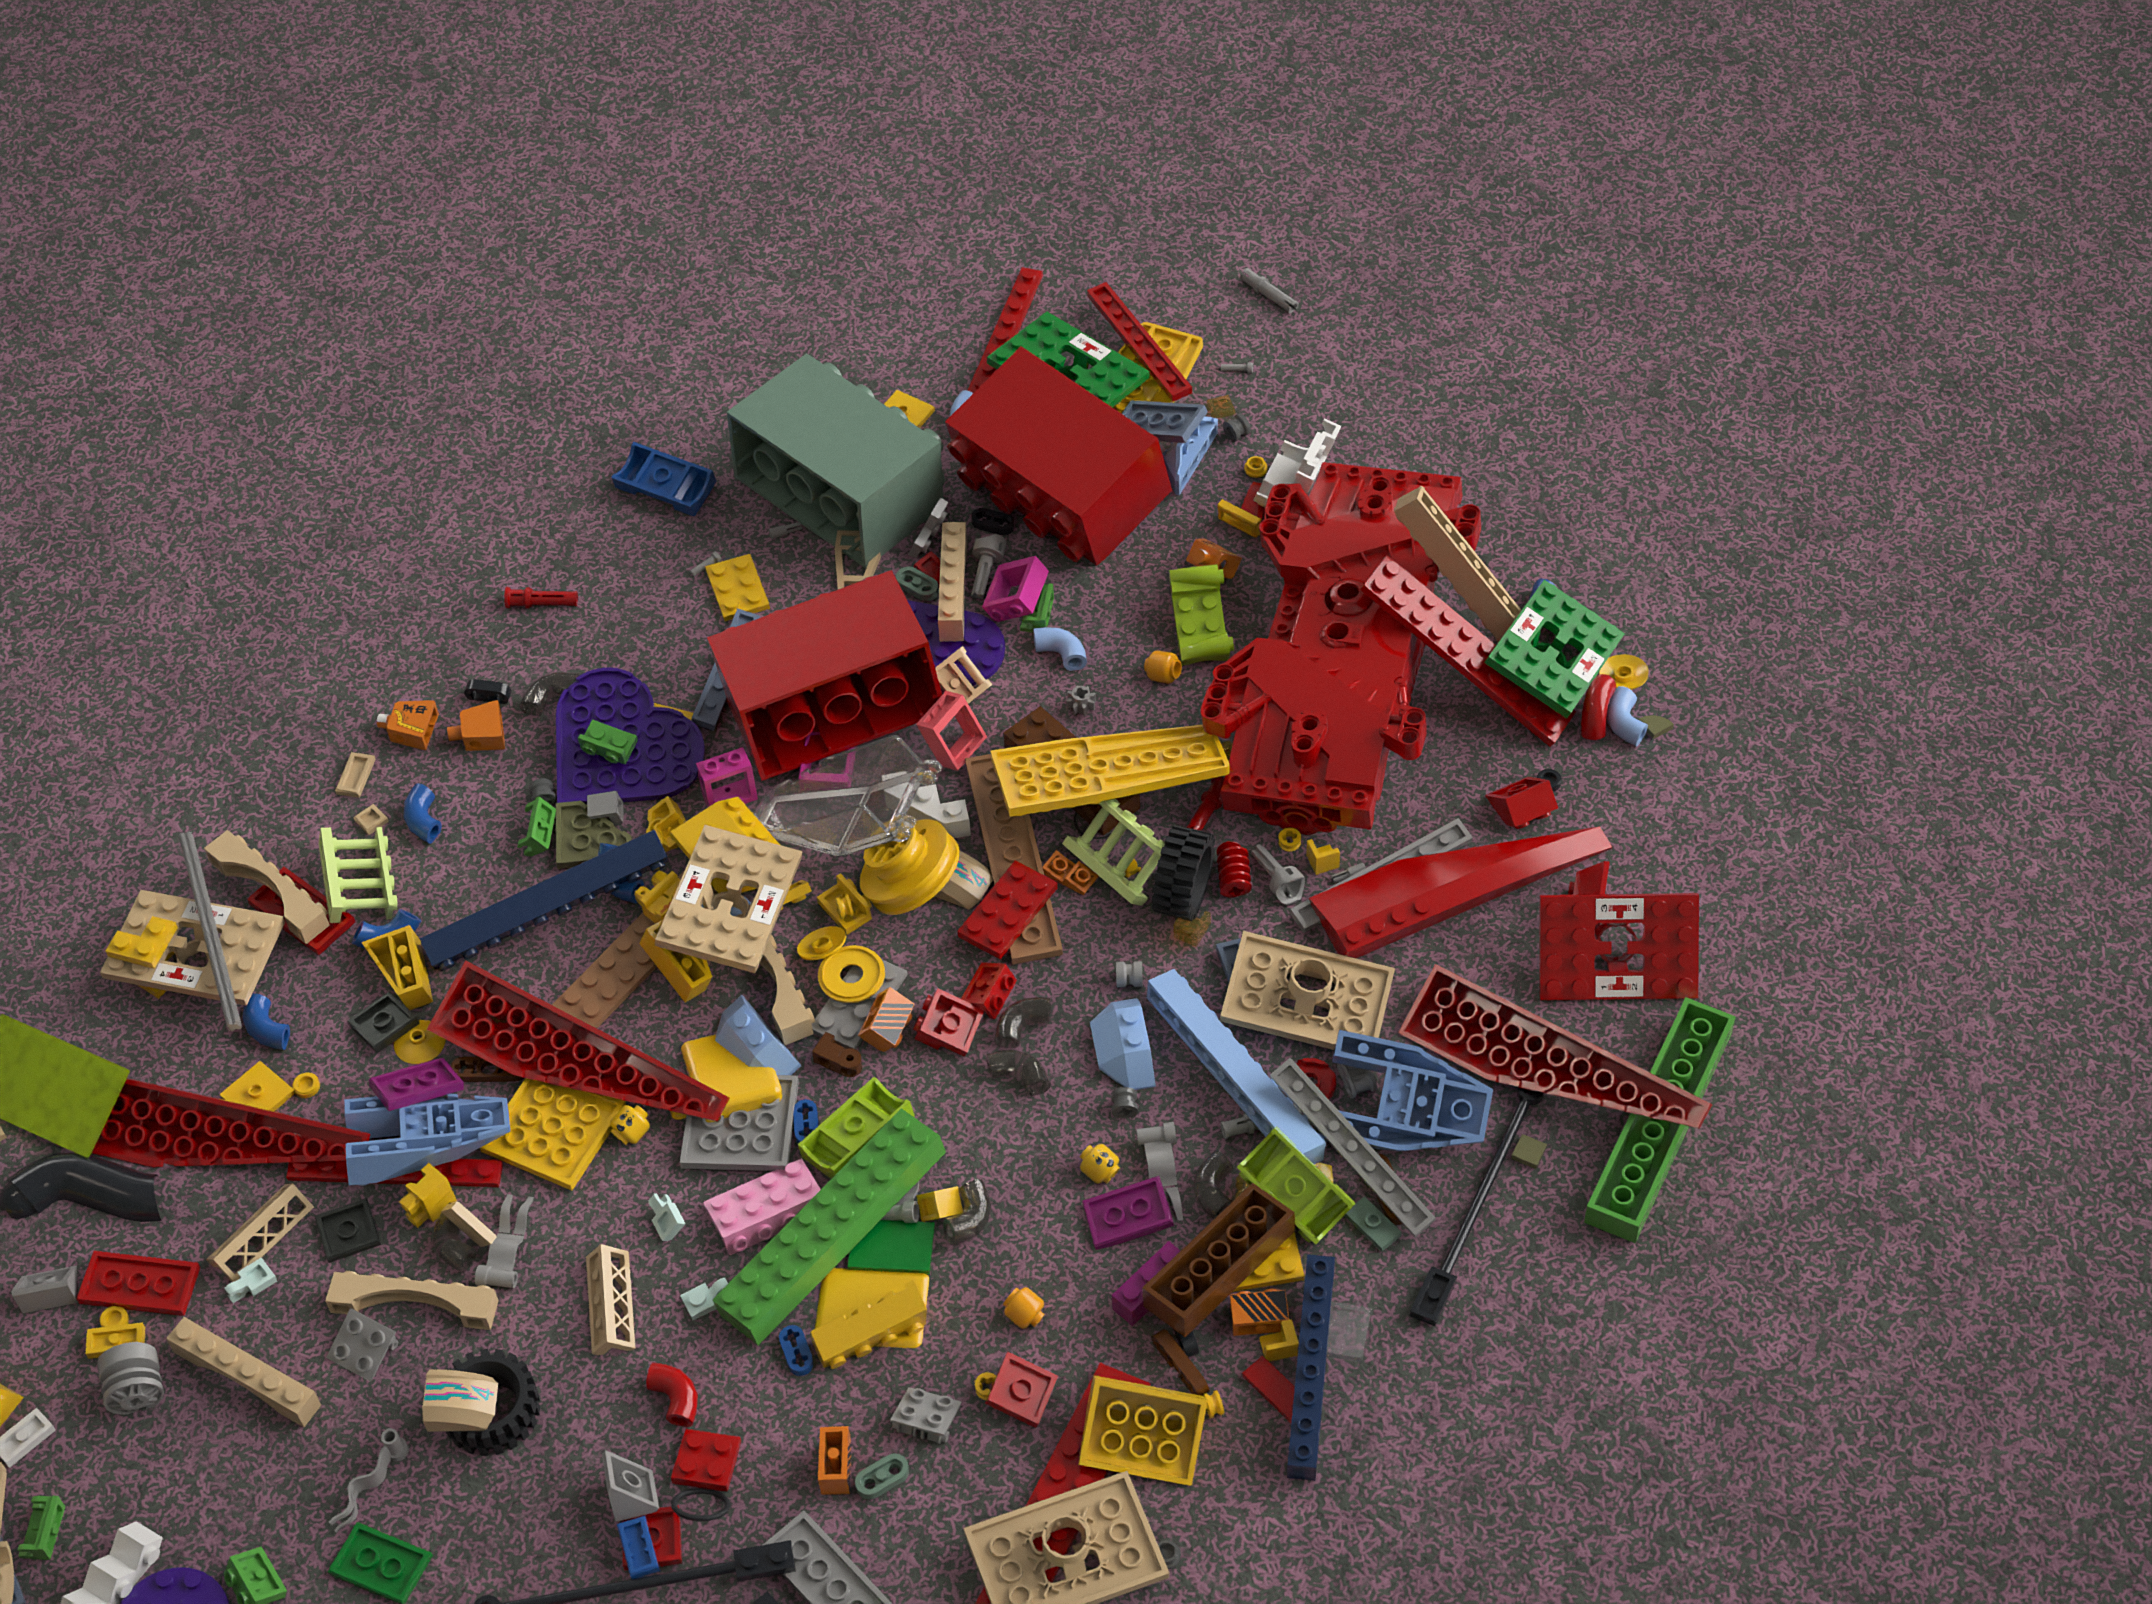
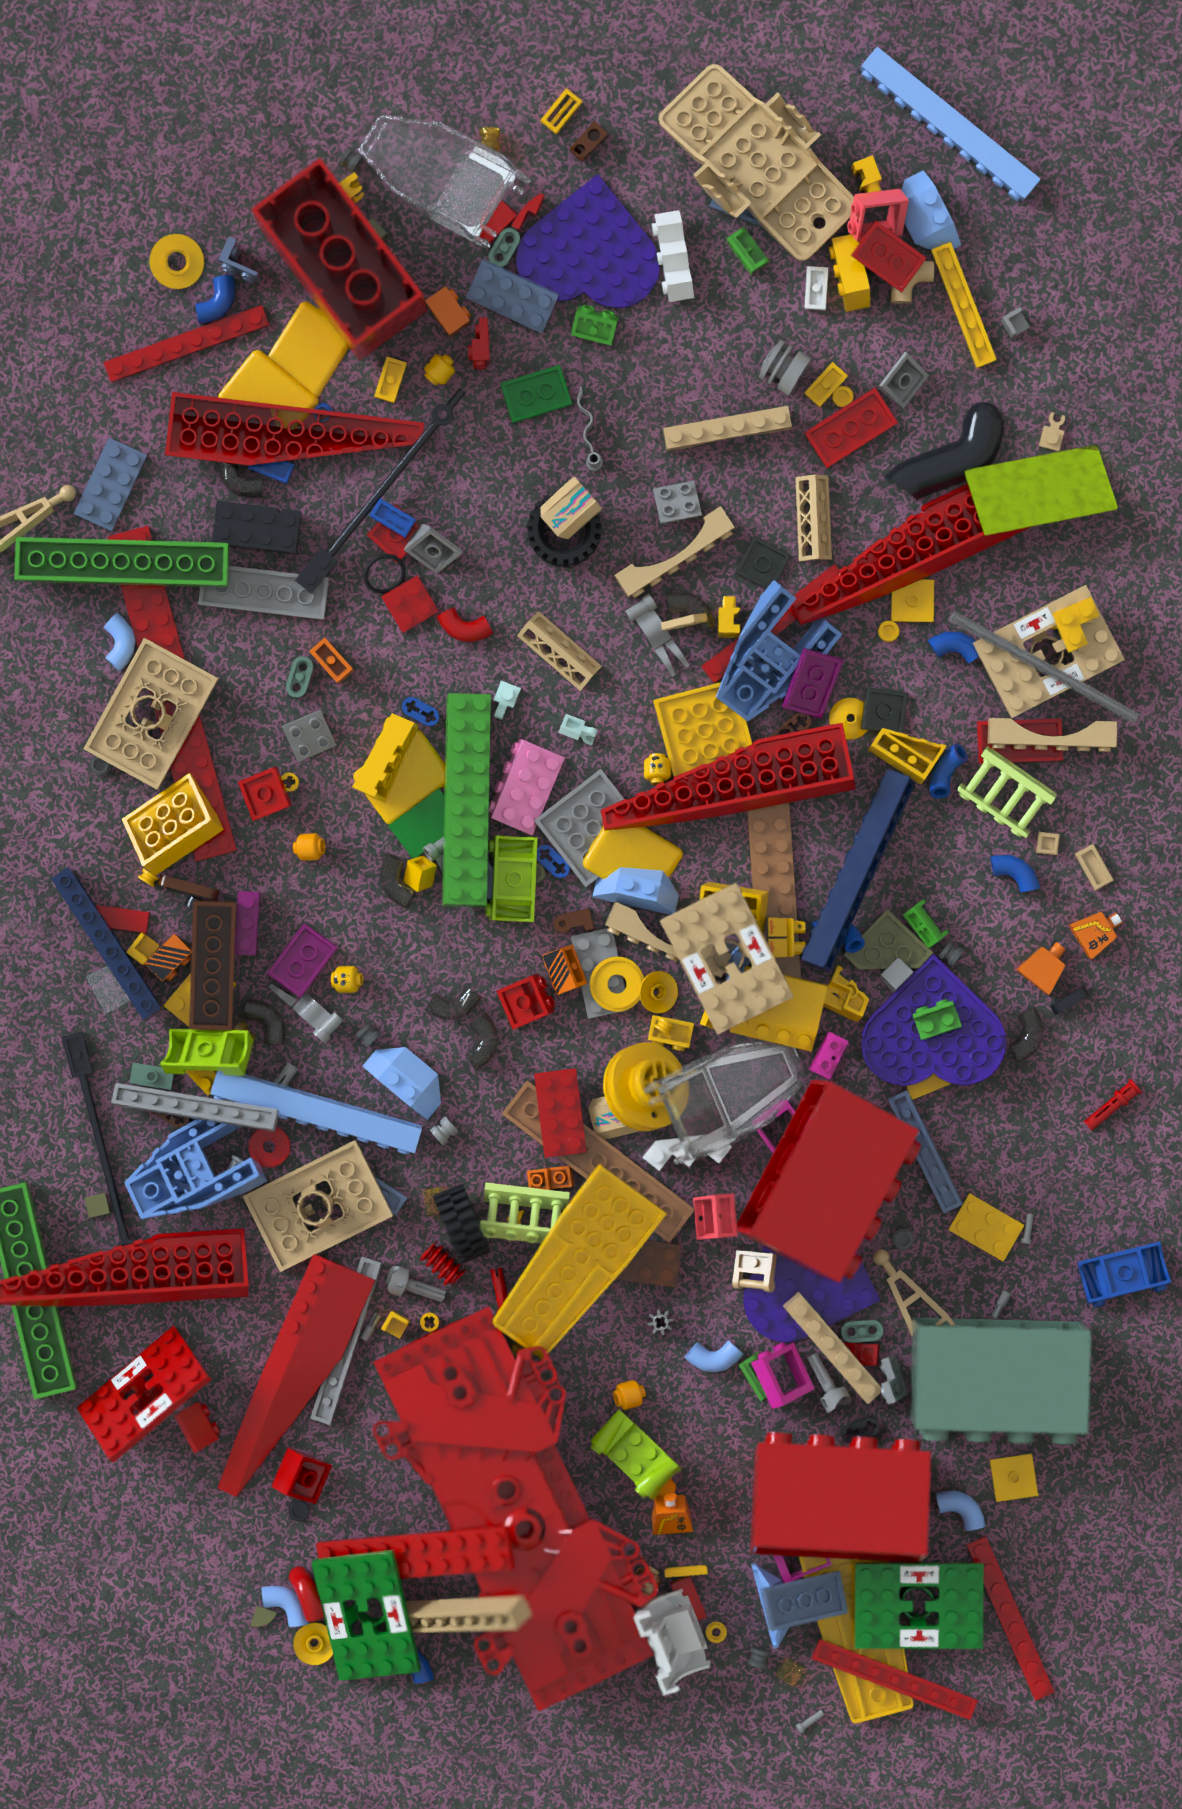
camera: 135 degrees right, 35 degrees up
(252, 1278) = (784, 488): light aqua plate -> none
(990, 987) = (524, 1047): red bracket -> none

